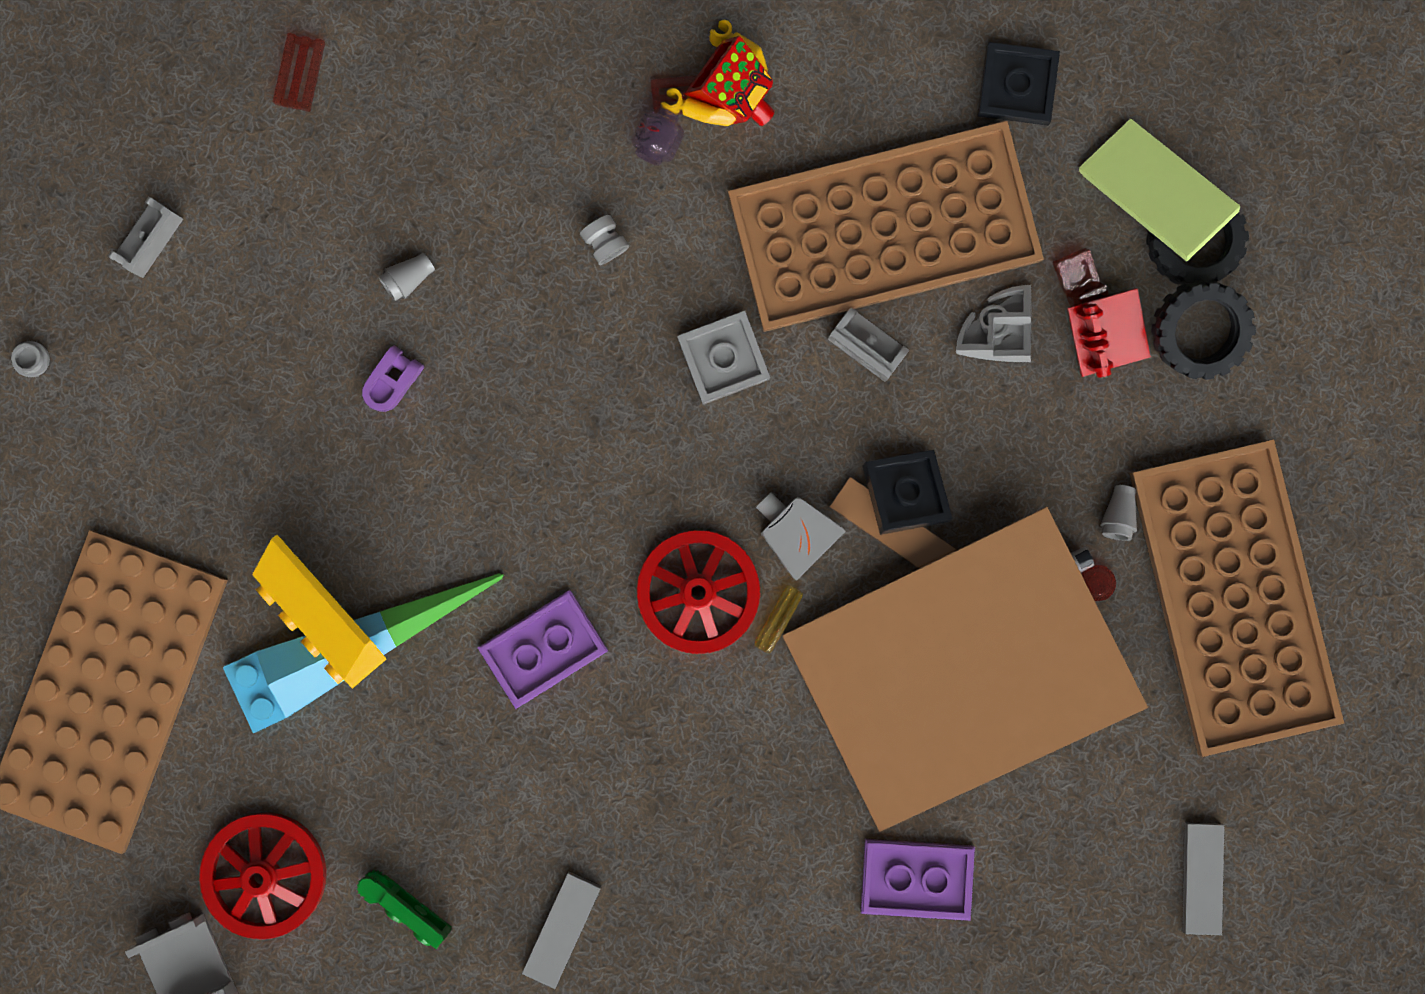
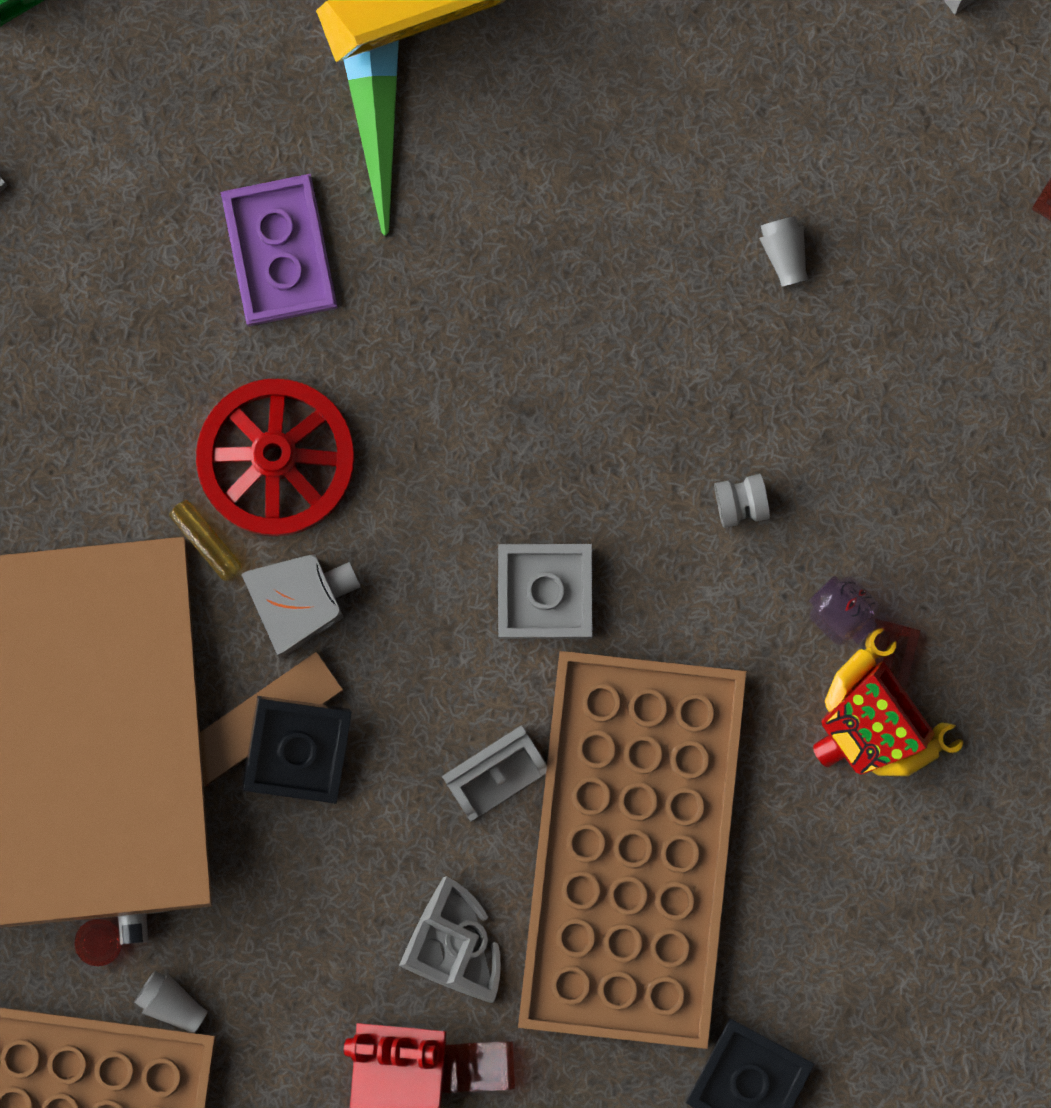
camera: 115 degrees right, 5 degrees down
(382, 391) = (657, 172): medium lavender plate -> none

